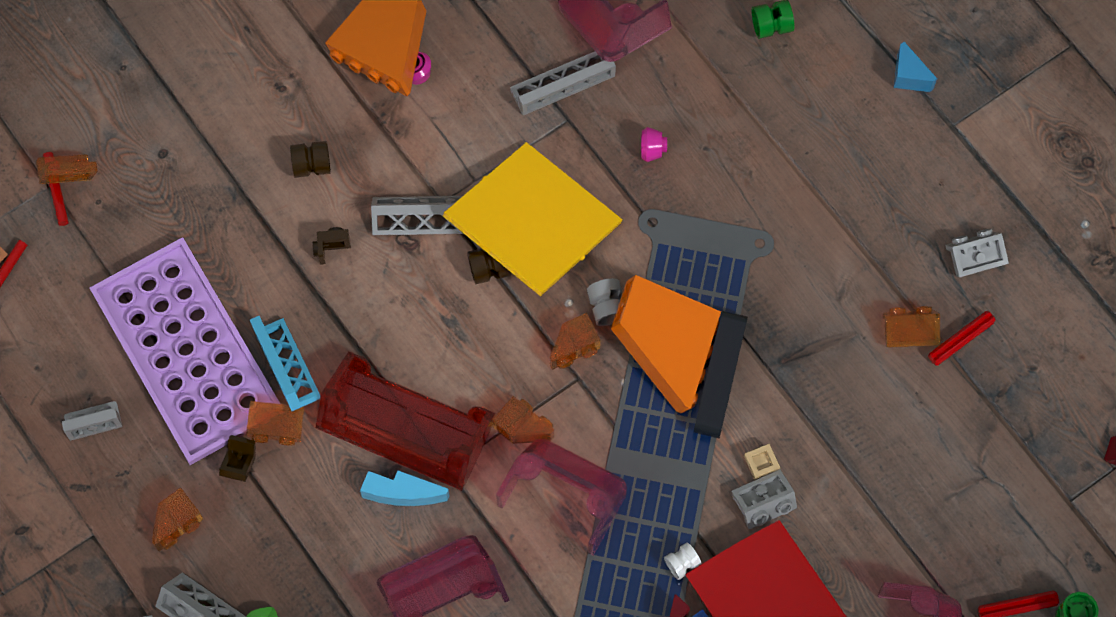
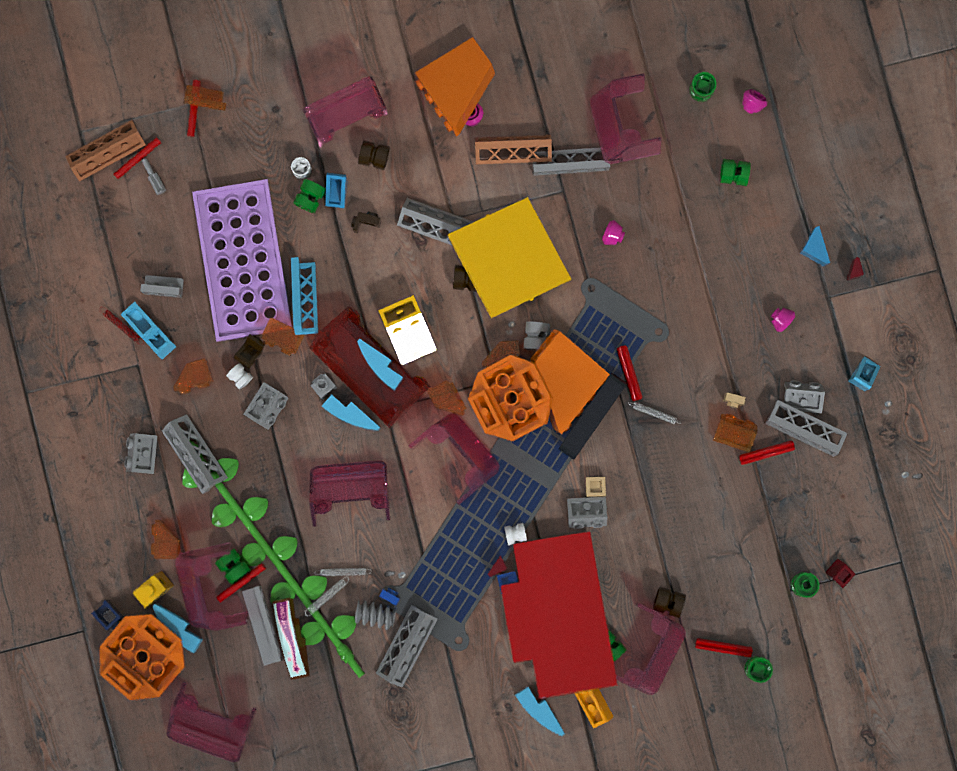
camera: 20 degrees right, 15 degrees up
(33, 291) = (154, 178): none -> light grey axle
(63, 495) = (121, 322): none -> red piece
(92, 483) = (148, 330): none -> medium azure slope
(221, 203) = (302, 165): none -> white wheel
(236, 496) = (239, 376): none -> white wheel
(245, 234) = (310, 189): none -> green wheel
(248, 111) = (344, 108): none -> clear pink windscreen
(277, 218) = (336, 190): none -> dark azure slope
(285, 521) = (266, 406): none -> light grey bracket
(351, 465) = (322, 385): none -> light grey window
(417, 412) = (380, 365): none -> medium azure slope
(436, 354) = (407, 330): none -> slope
(477, 84) = (513, 142): none -> nougat fence
(580, 379) = (493, 404): none -> orange piece
(744, 305) = (629, 373): none -> red axle
(799, 342) = (653, 414): none -> white piece
(891, 287) = (734, 400): none -> tan plate
(908, 168) = (782, 318): none -> dark pink cone
(912, 572) = (662, 601): none -> dark brown wheel
(971, 79) = (855, 269): none -> dark red slope
(995, 297) = (803, 435): none -> light grey fence
(1040, 199) = (865, 374): none -> medium azure slope
(1086, 481) = (805, 584): none -> green wheel

